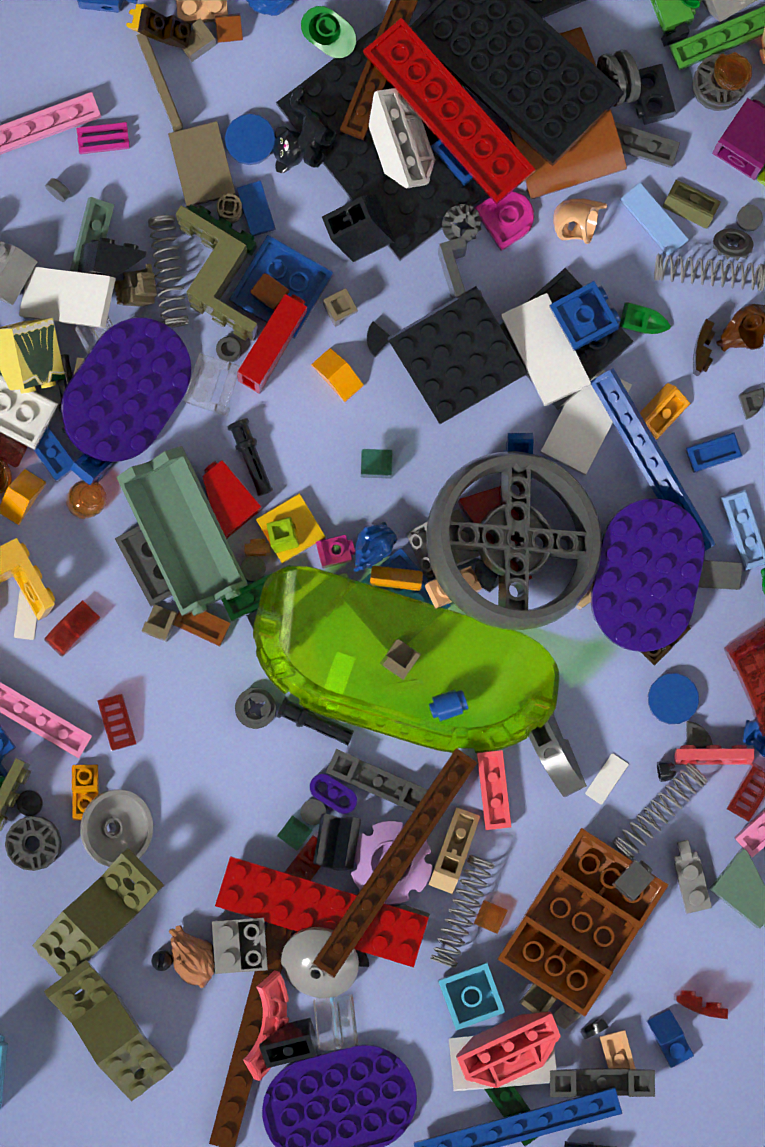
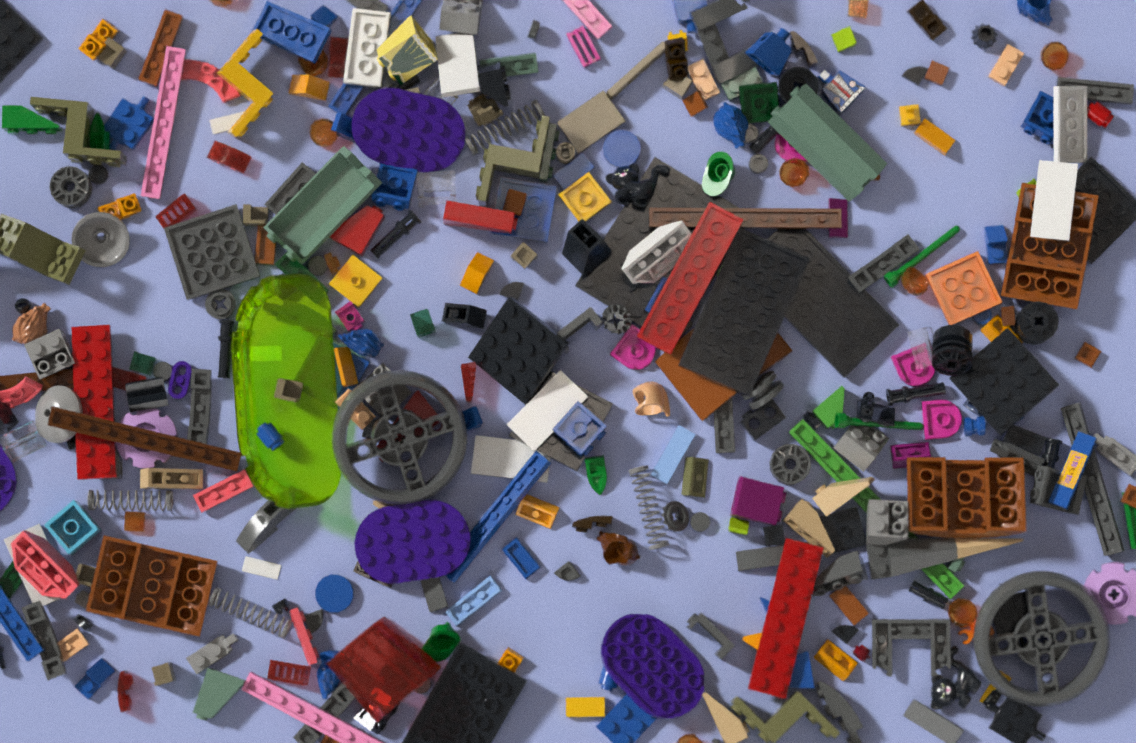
camera: 80 degrees right, 0 degrees up
(185, 694) = (211, 252): none -> dark grey plate
(193, 432) = (395, 188): none -> blue plate
(228, 349) = (466, 190): dark grey tile -> none
(282, 535) = (347, 276): lime slope -> none
(295, 206) = (585, 198): none -> yellow plate
(386, 409) = (464, 315): none -> black slope
(465, 432) = (468, 374): none -> clear red slope
(634, 879) = (192, 609): dark grey brick -> none
(697, 949) = (163, 674): none -> dark tan panel
(732, 71) = (796, 468): clear orange hair -> none

